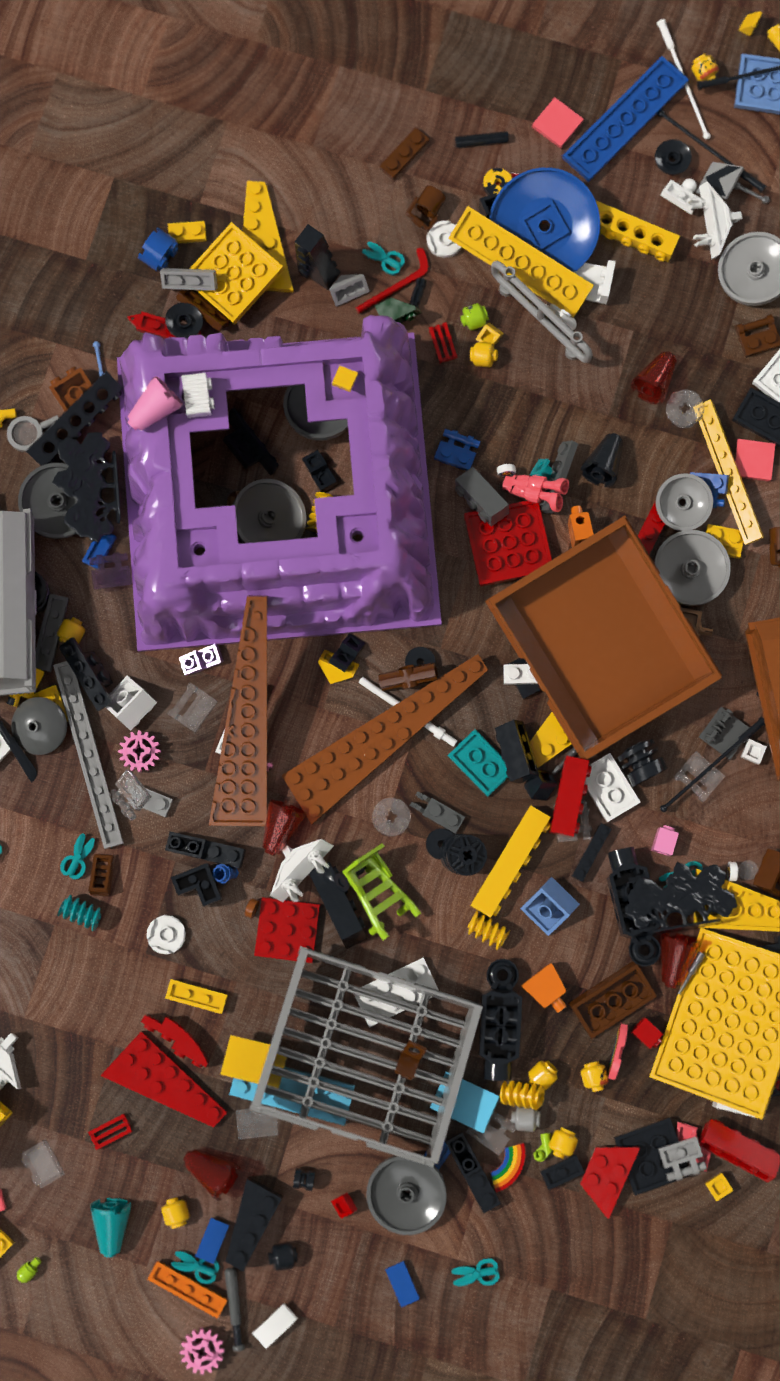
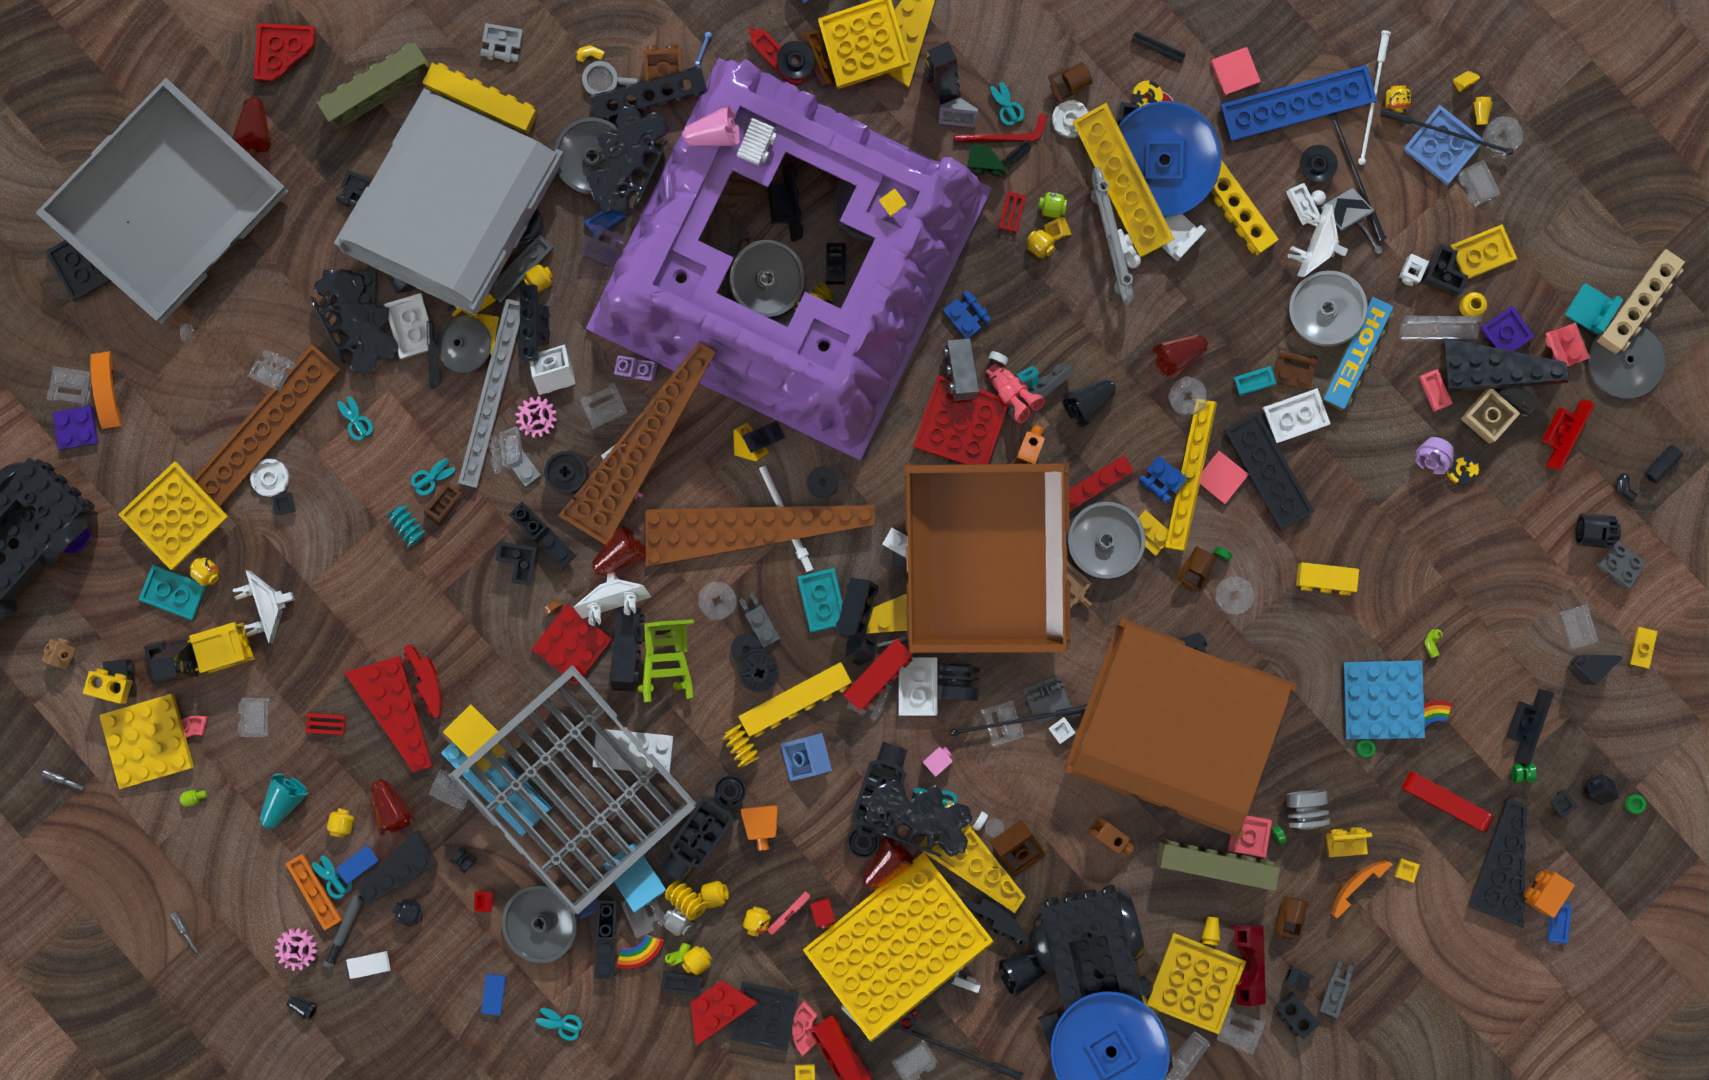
camera: 30 degrees right, 5 degrees up
(166, 934) = (468, 586): white tile -> none
(183, 780) = (555, 470): none -> black wheel
(188, 279) = (821, 25): light grey plate -> none
(196, 996) = (462, 654): yellow plate -> none
(223, 873) = (546, 564): blue cone -> none
(404, 153) = (1081, 19): reddish brown plate -> none
(408, 676) = (803, 489): reddish brown piece -> none
(409, 1060) = (607, 815): reddish brown bracket -> none
(591, 852) = (869, 732): black piece -> none
(612, 999) = (811, 867): reddish brown slope -> none
(681, 1152) = (790, 1028): light grey plate -> none
(692, 969) = (893, 883): flat silver piece -> none
(697, 498) = (1134, 493): light grey dish -> none
(732, 363) = (1255, 381): none -> teal plate

